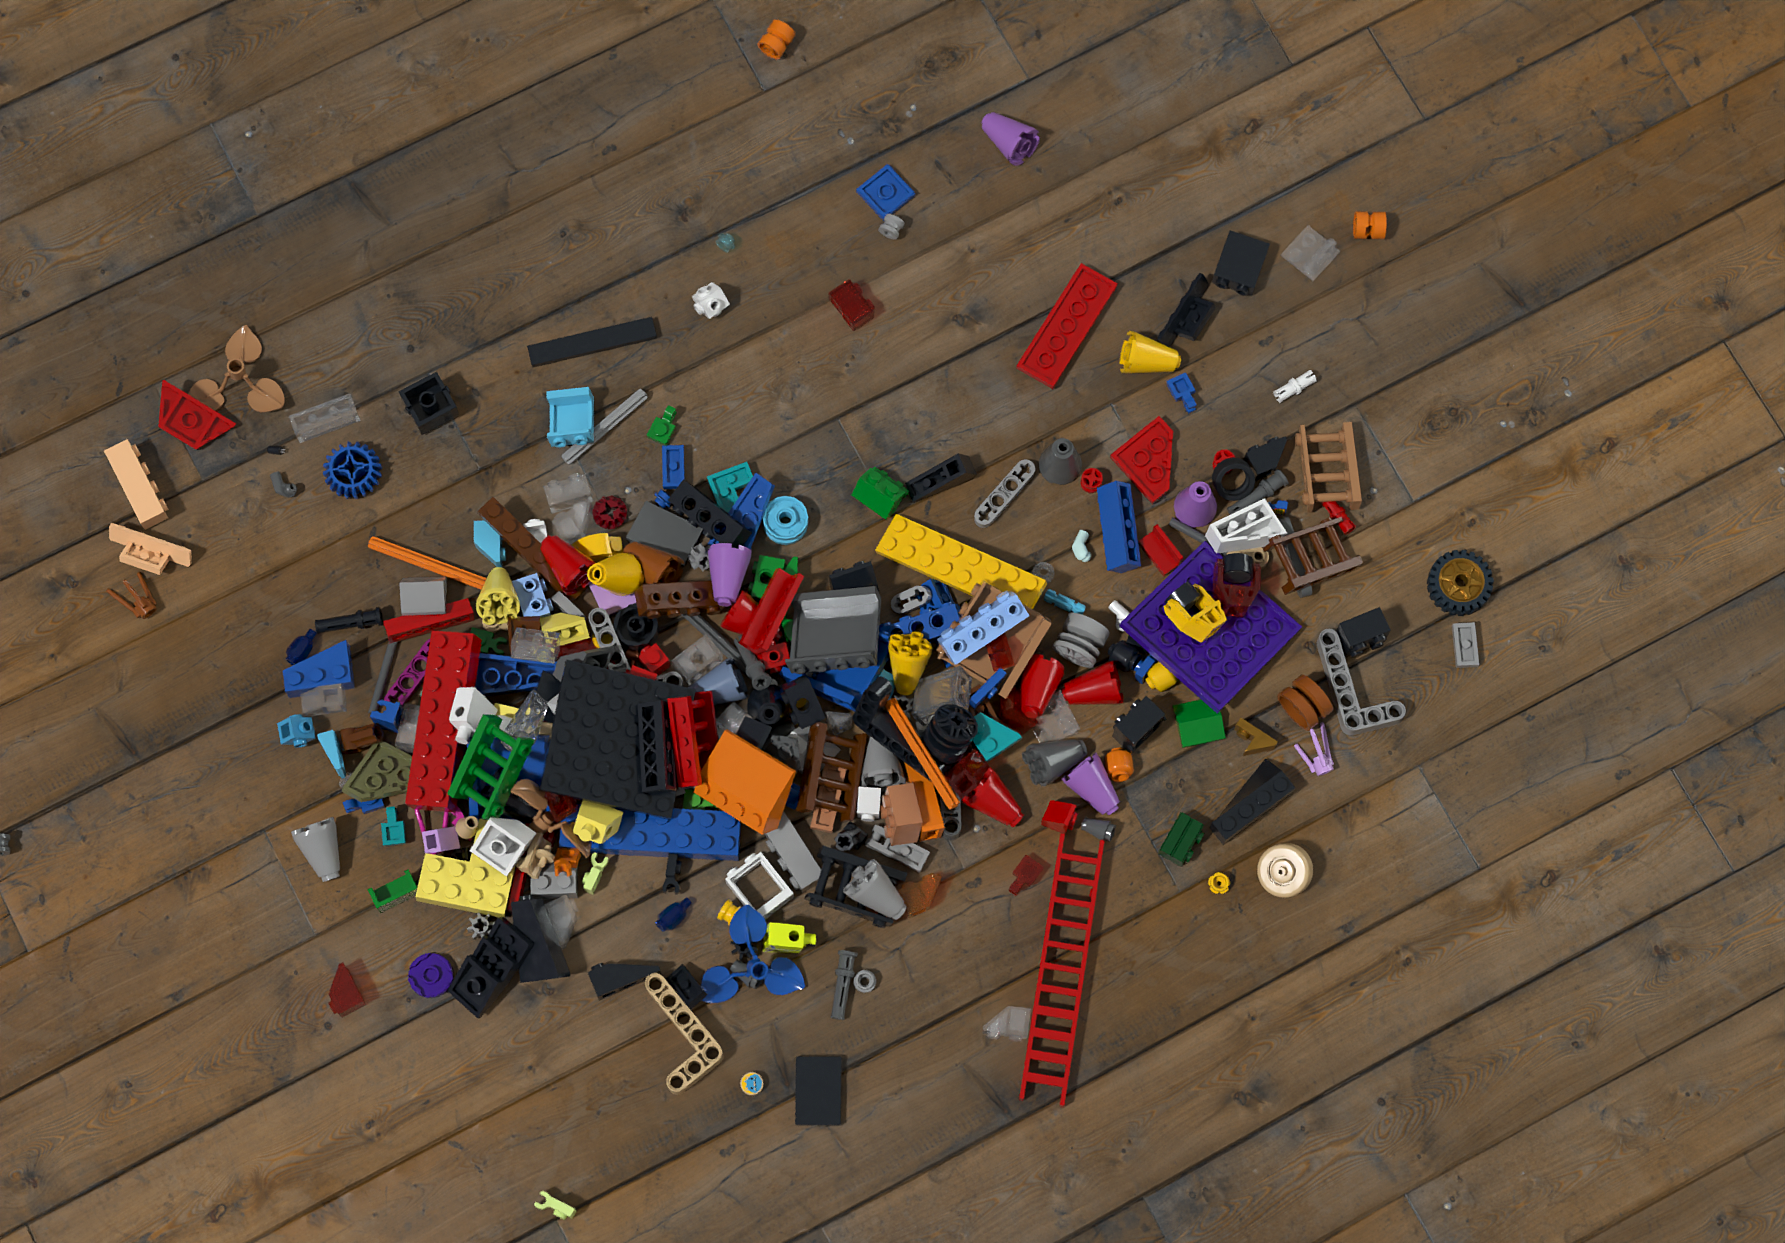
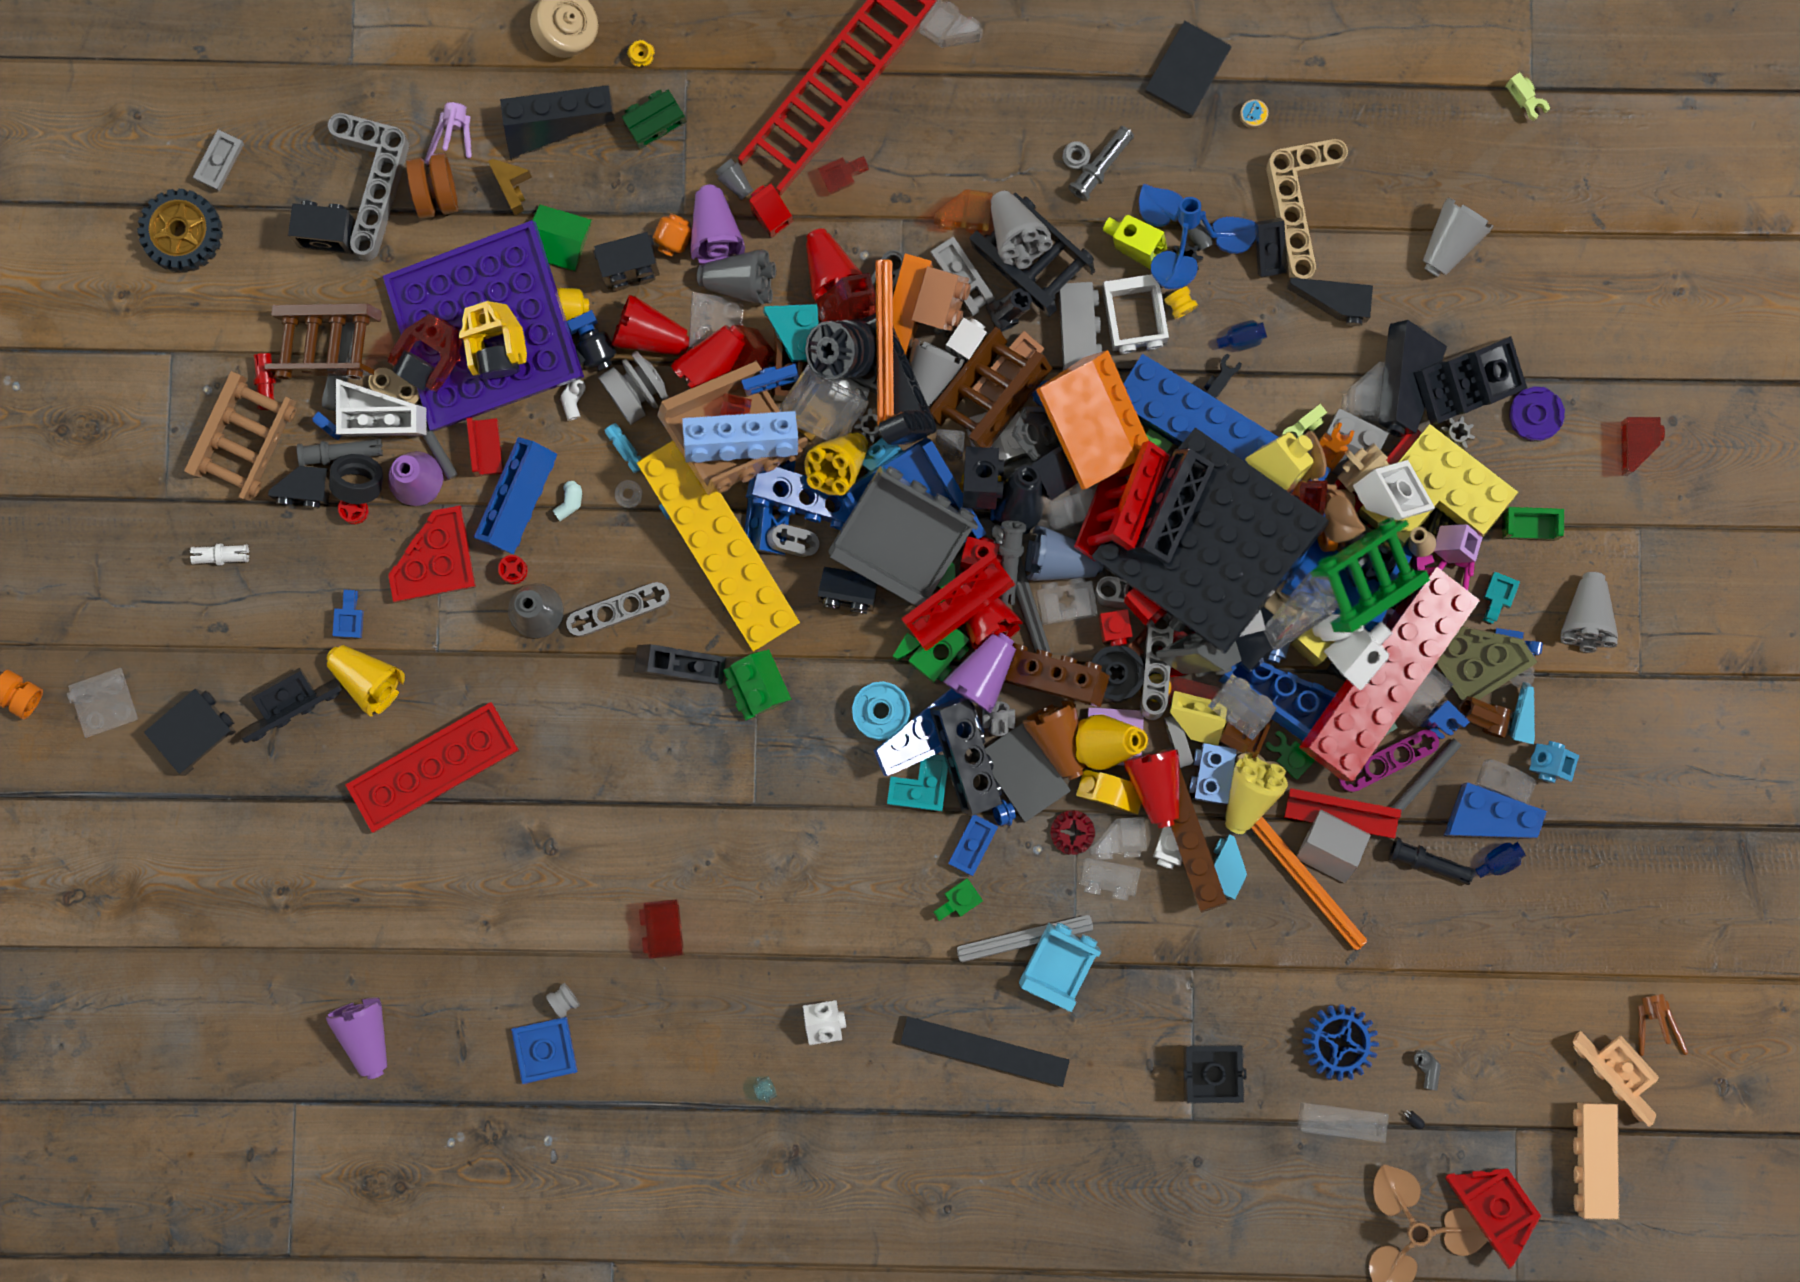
camera: 150 degrees left, 10 degrees up
(556, 1068) = (1454, 237): none -> light grey cone

